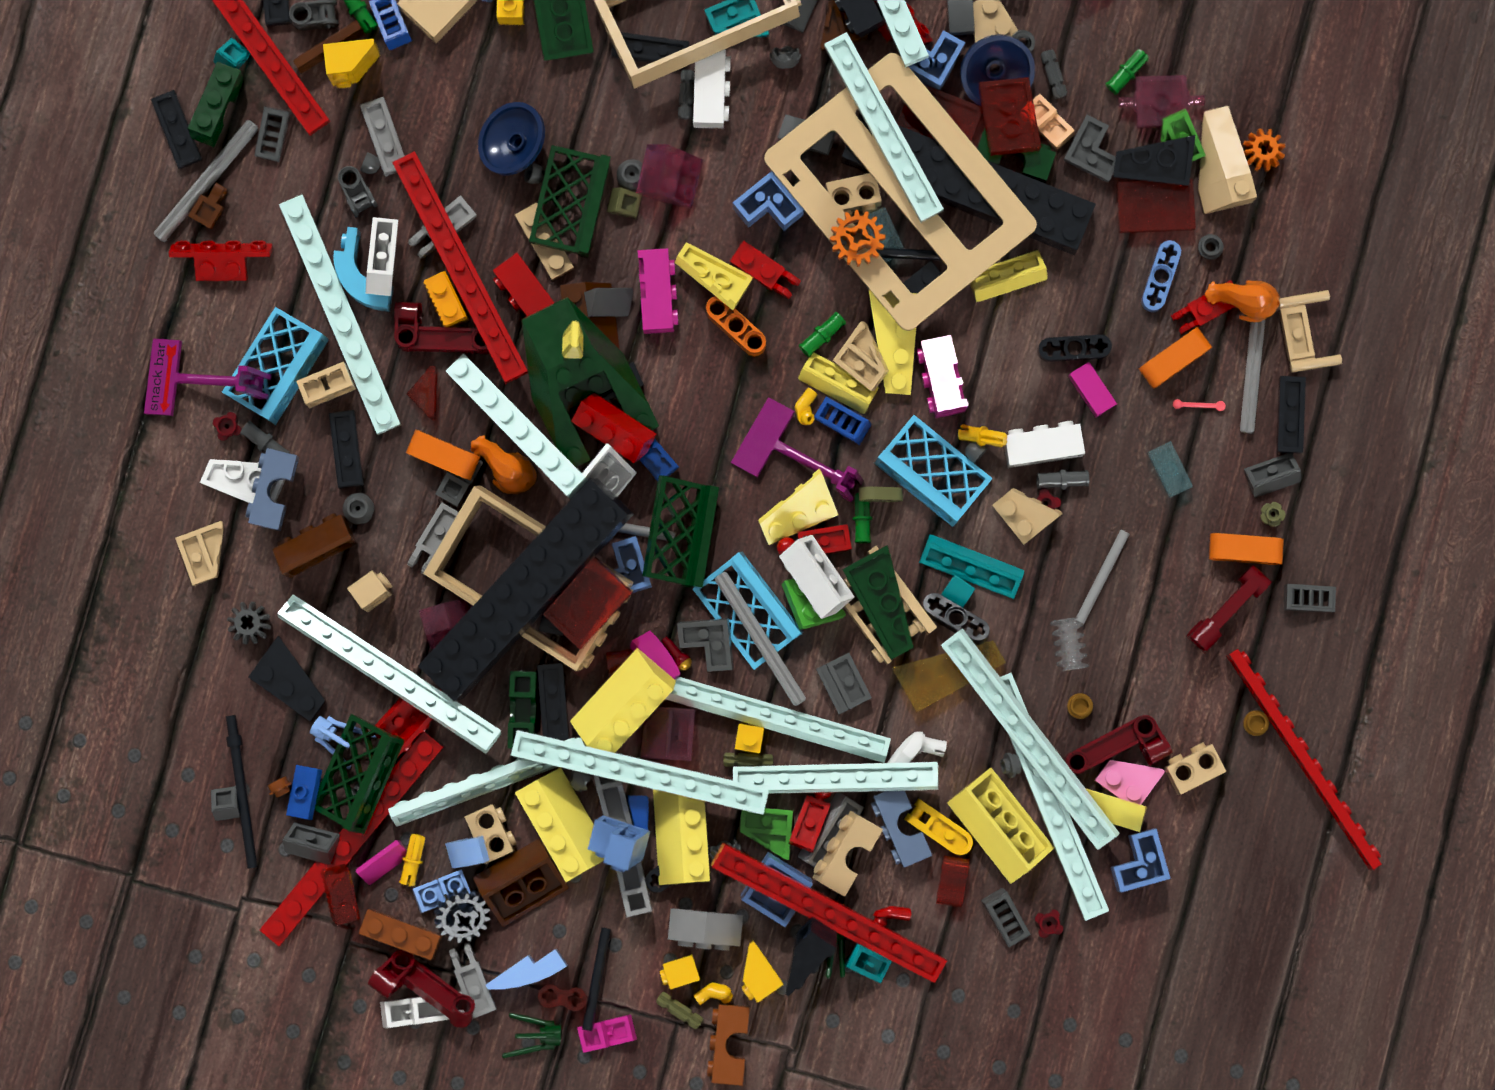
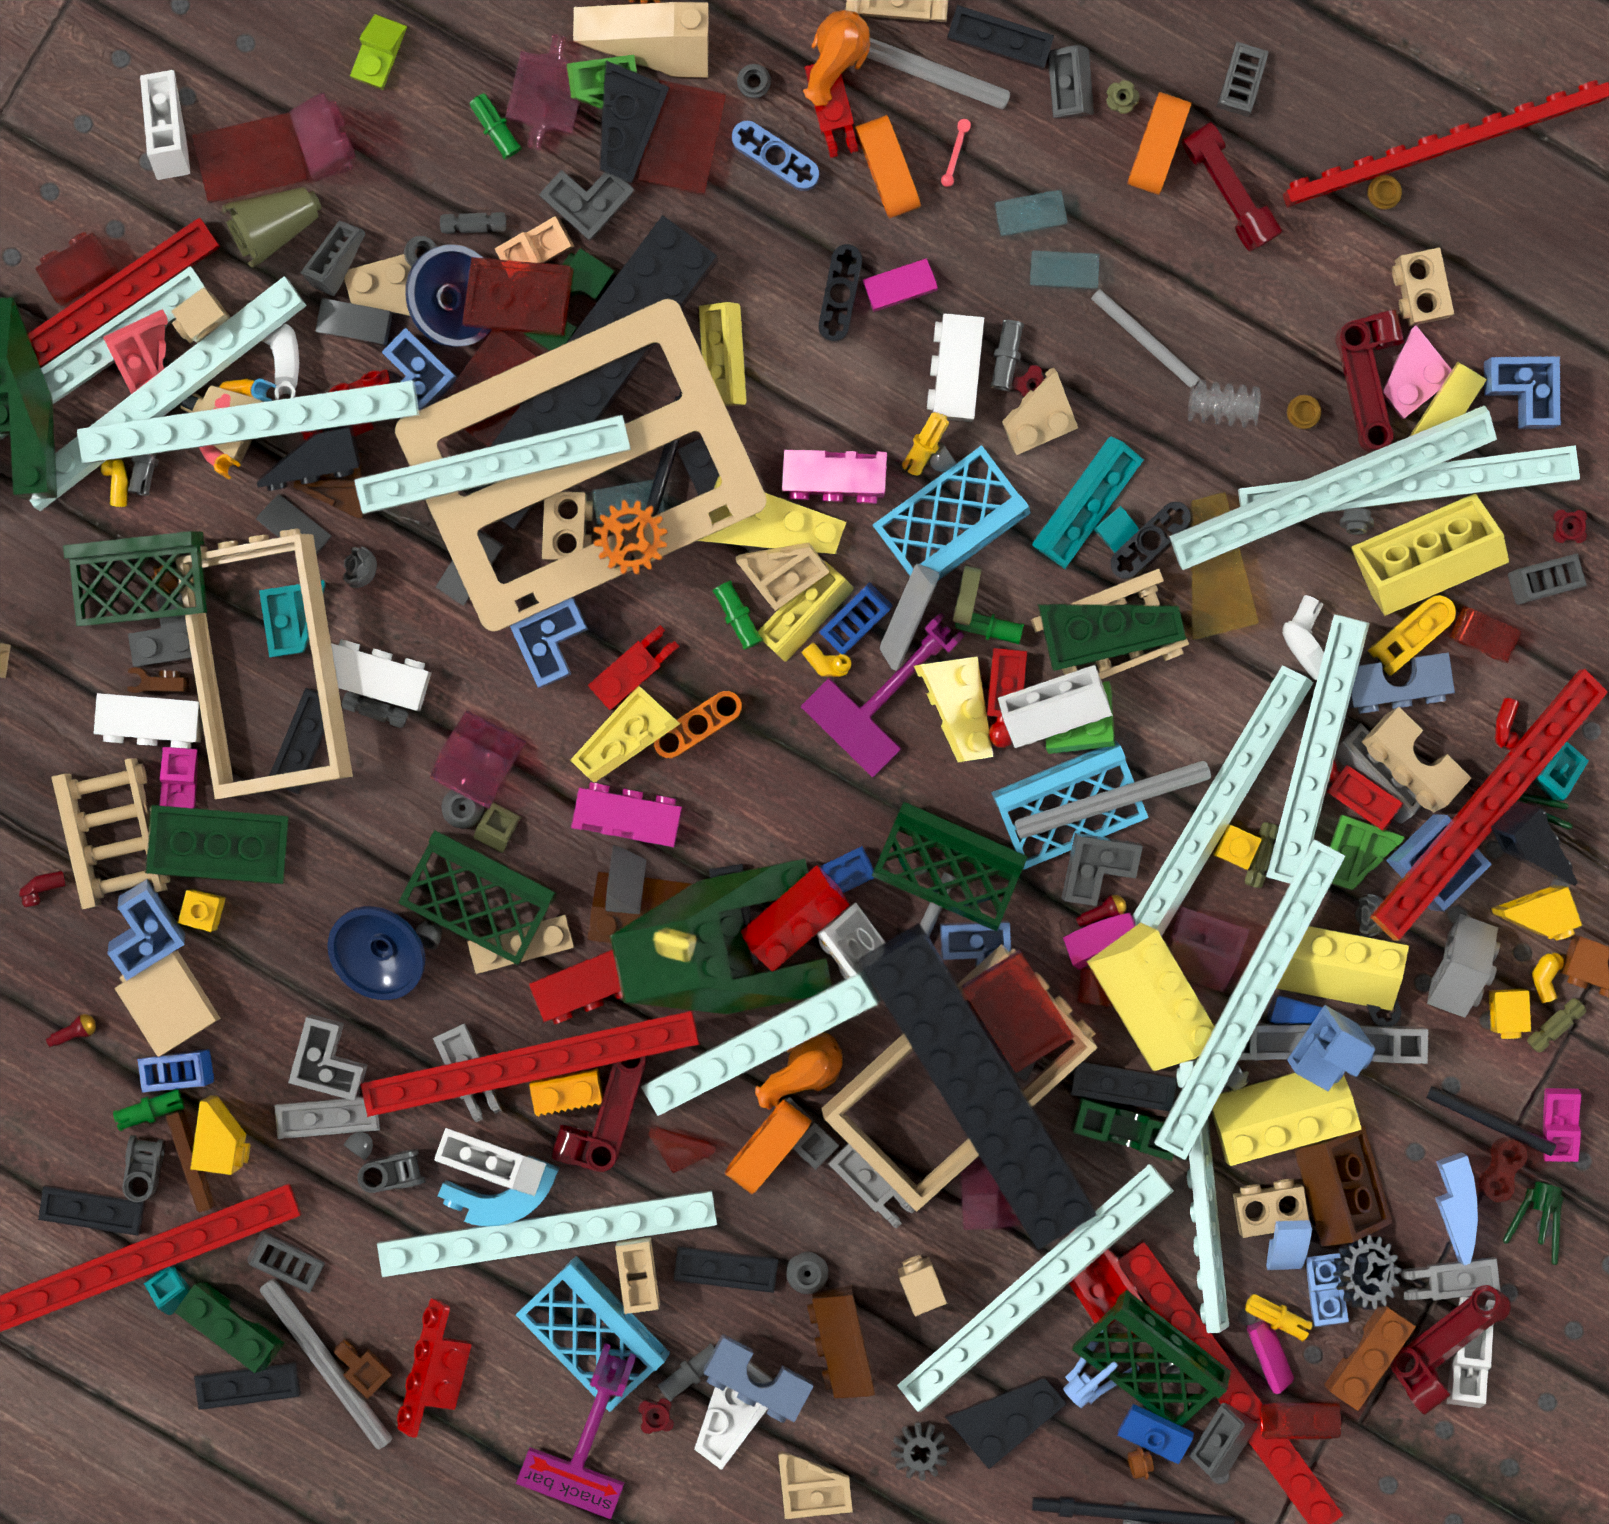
camera: 75 degrees left, 5 degrees up
(420, 118) = (317, 1065): none -> light grey brick
(843, 683) = (1196, 707): dark grey plate -> none
(855, 455) = (908, 614): none -> light grey slope
(1135, 504) = (1064, 269): none -> clear light blue plate

